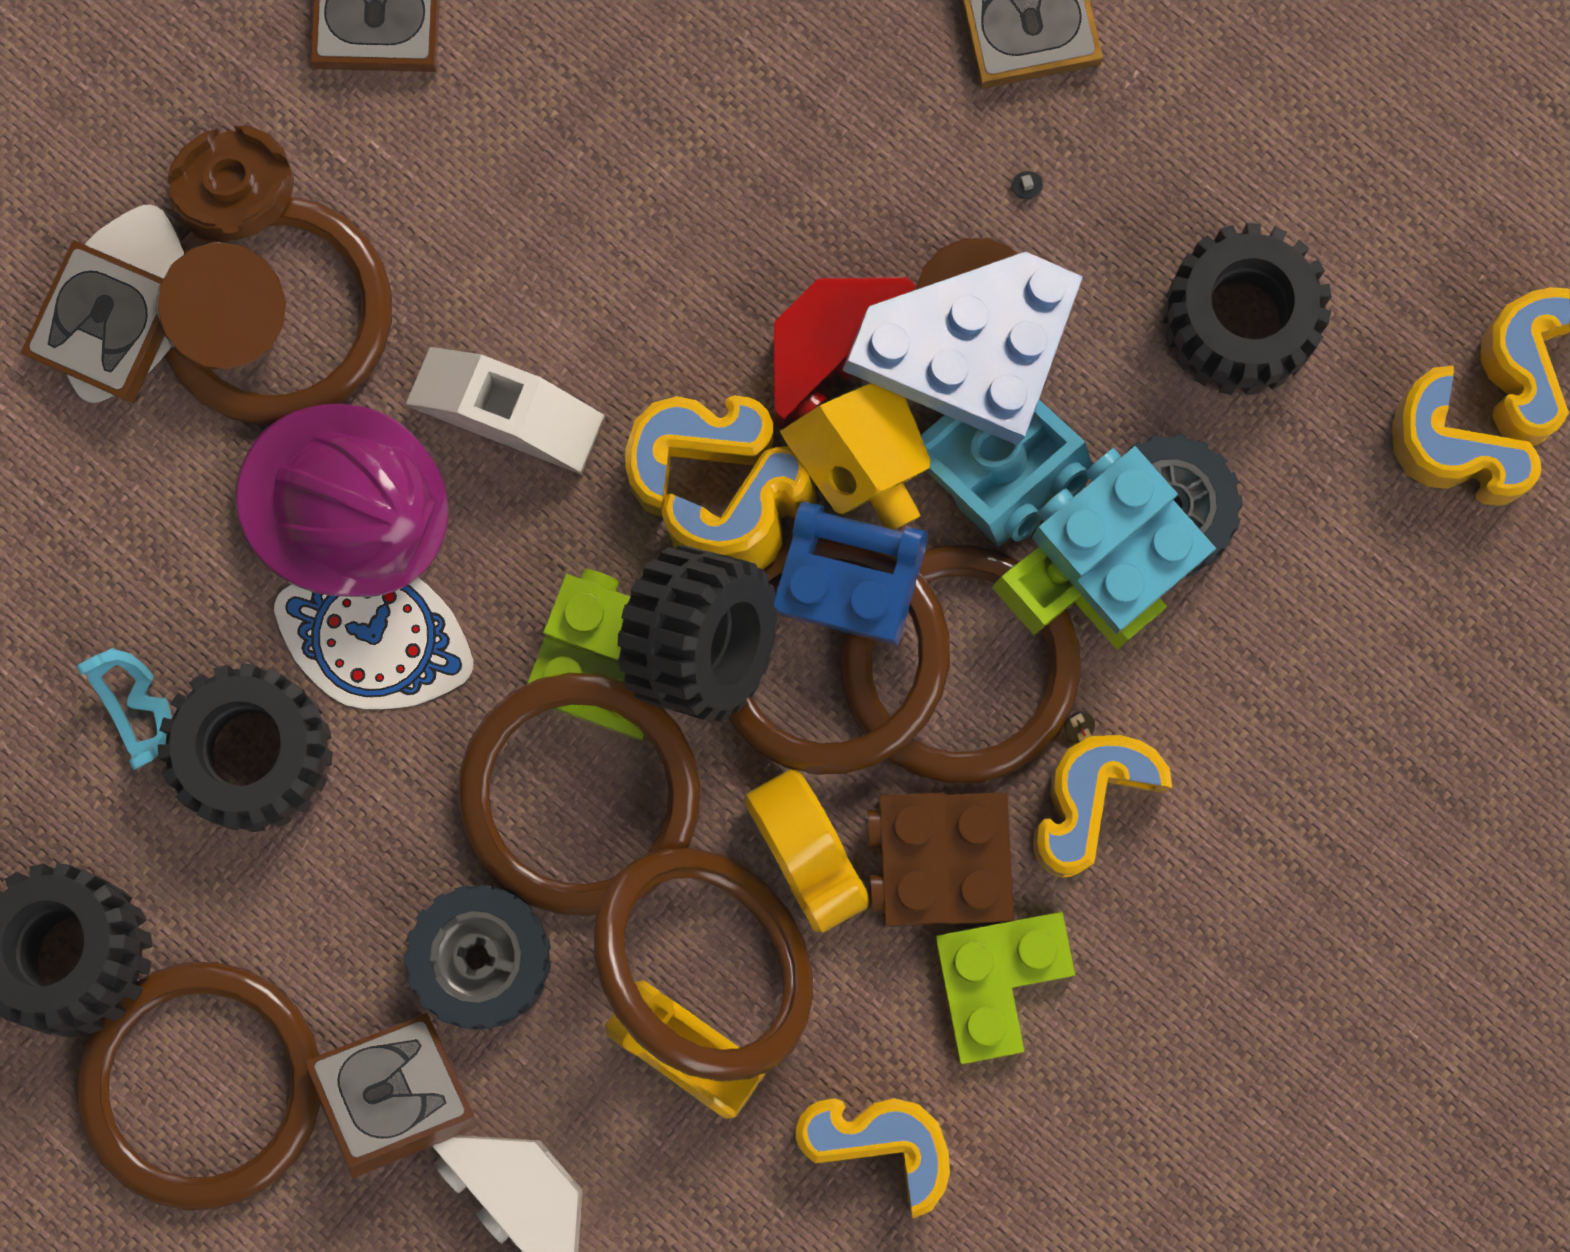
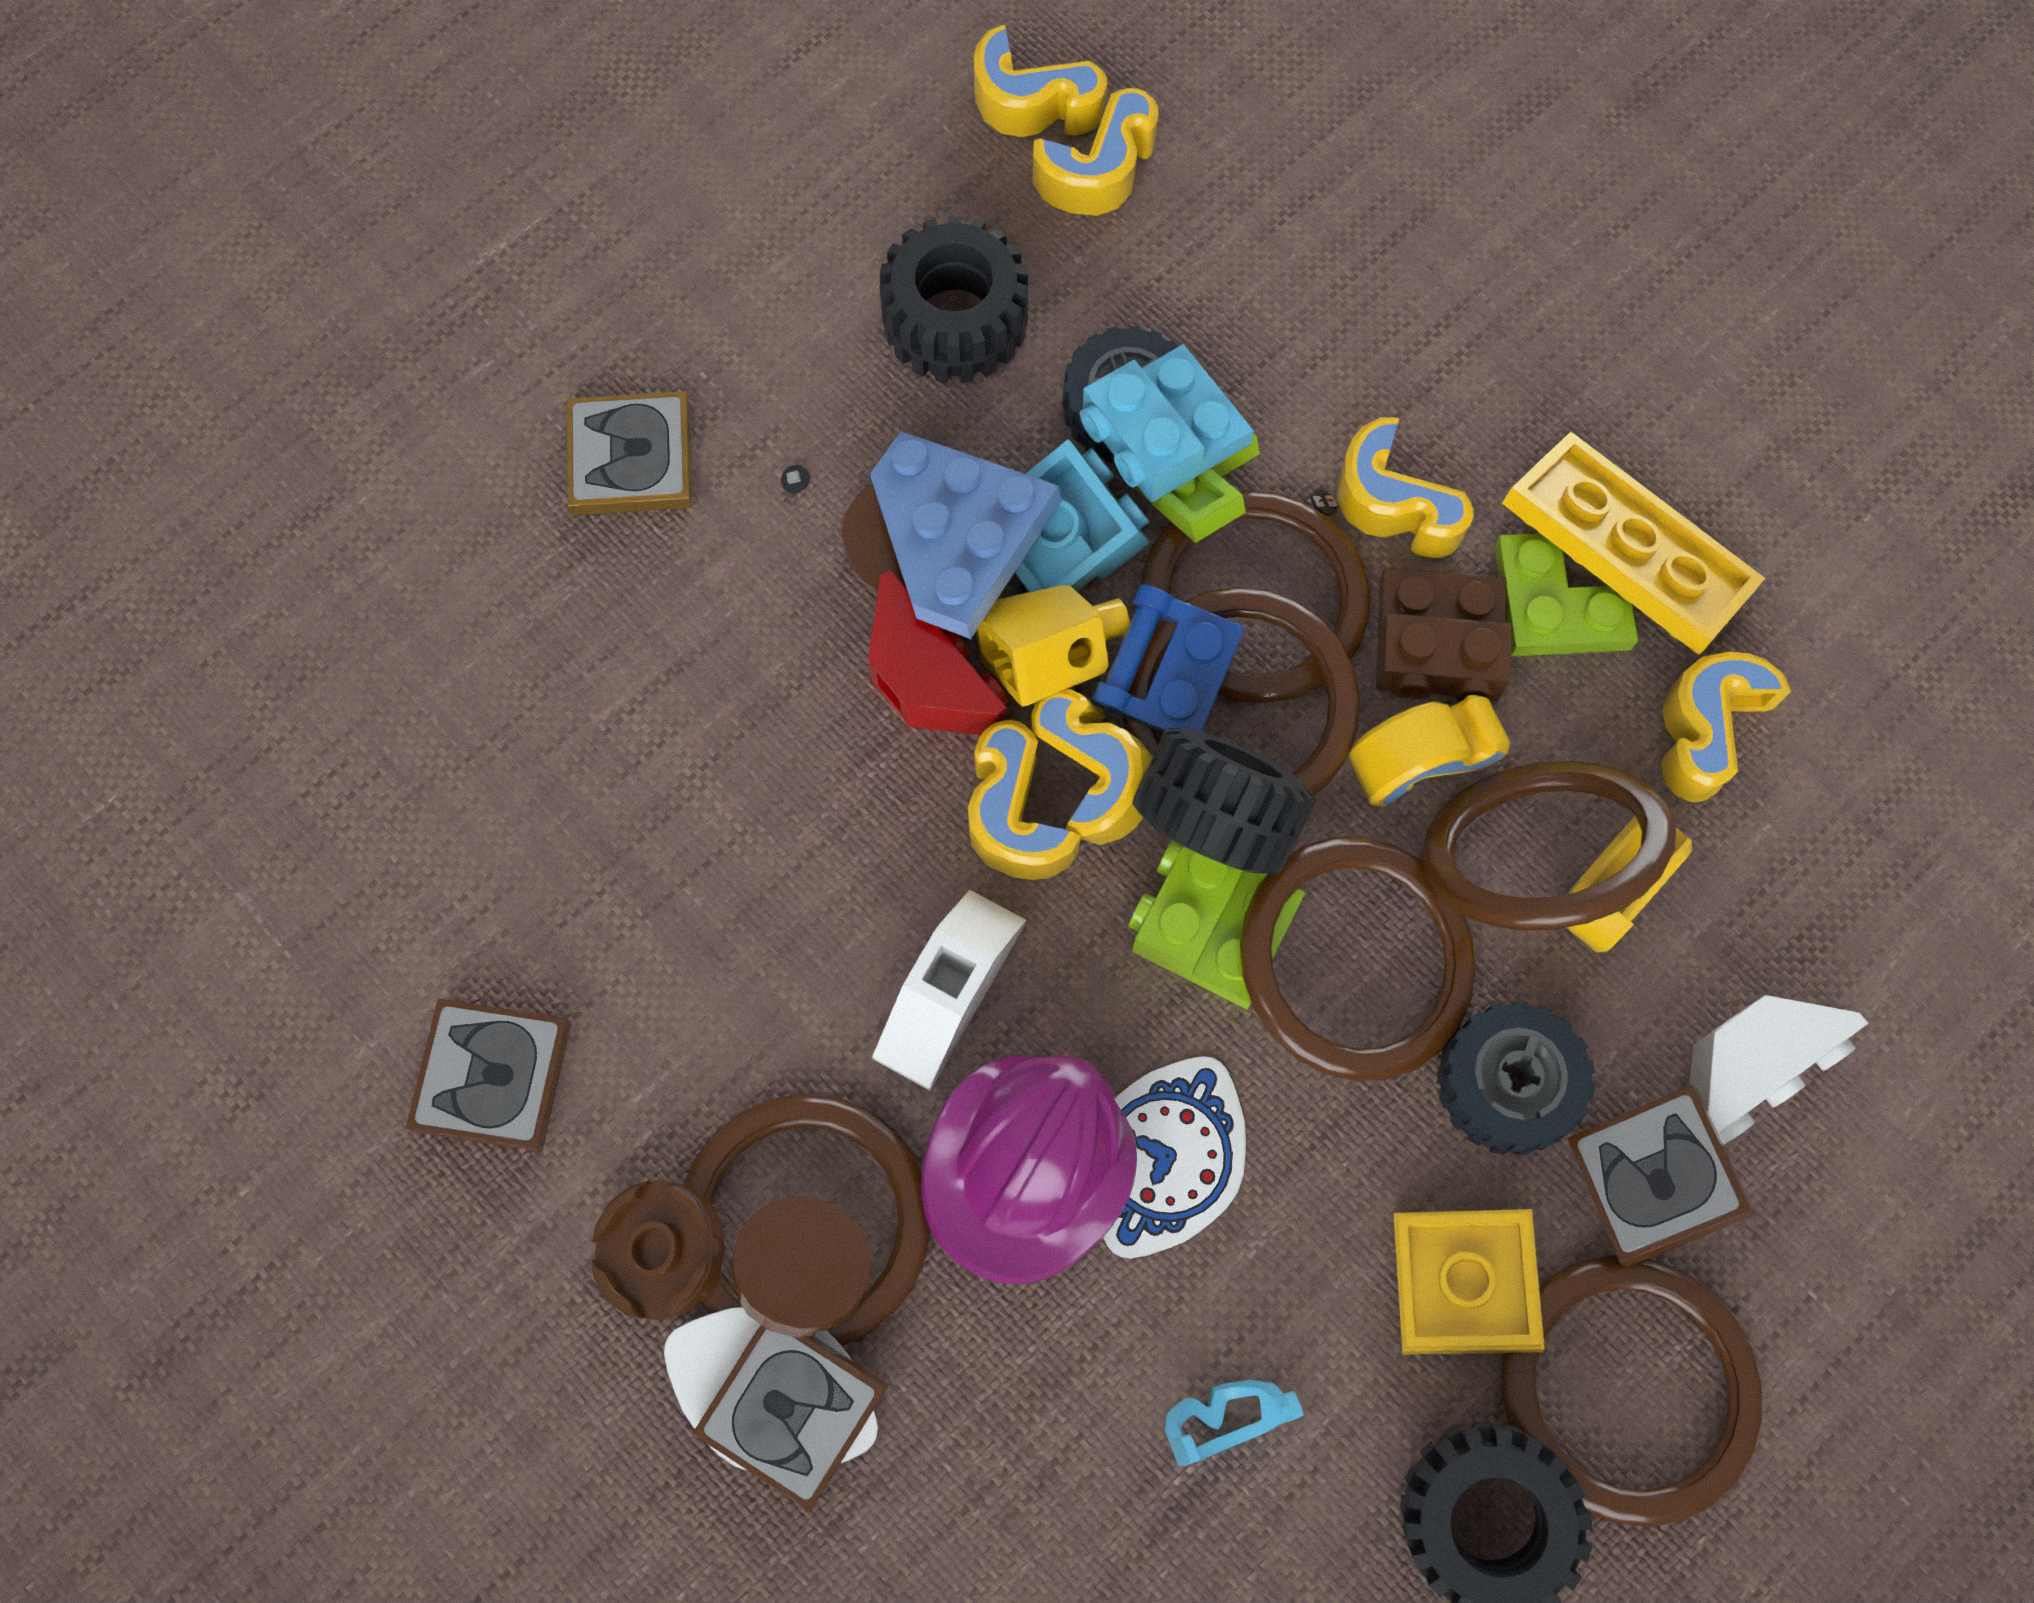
camera: 85 degrees left, 10 degrees down
(200, 720) = (1343, 1280): black tyre -> none
(278, 922) = (1468, 1282): none -> yellow tile
(1069, 1051) = (1633, 542): none -> yellow plate

